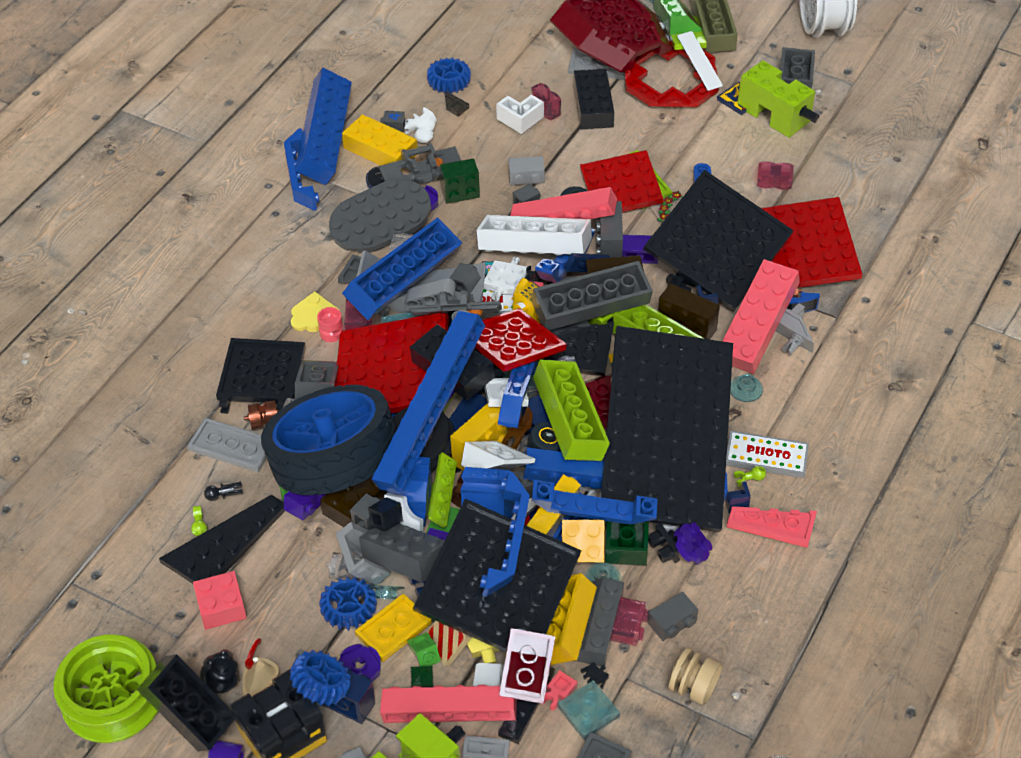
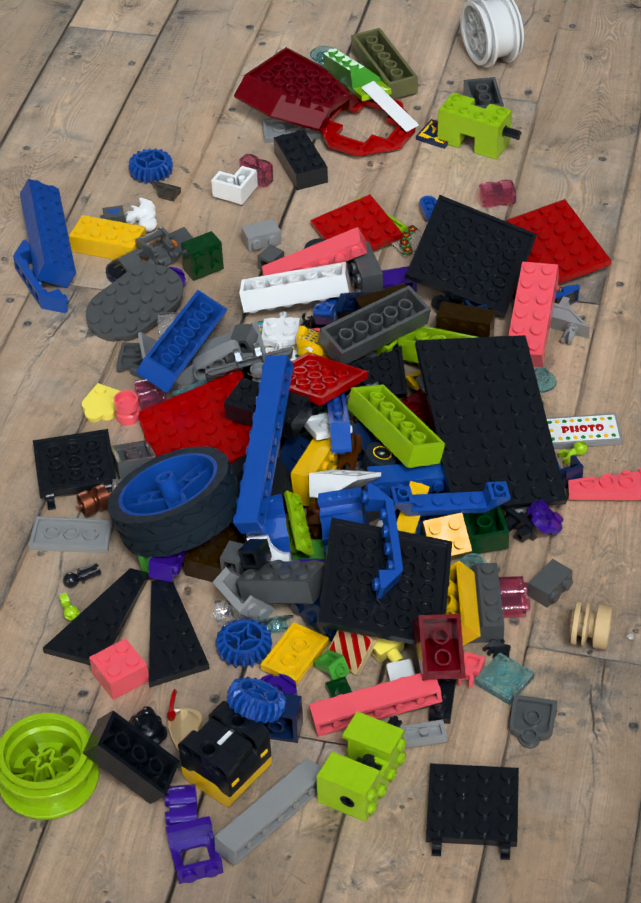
camera: 15 degrees left, 5 degrees down
(284, 581) = (173, 642): none -> black wing

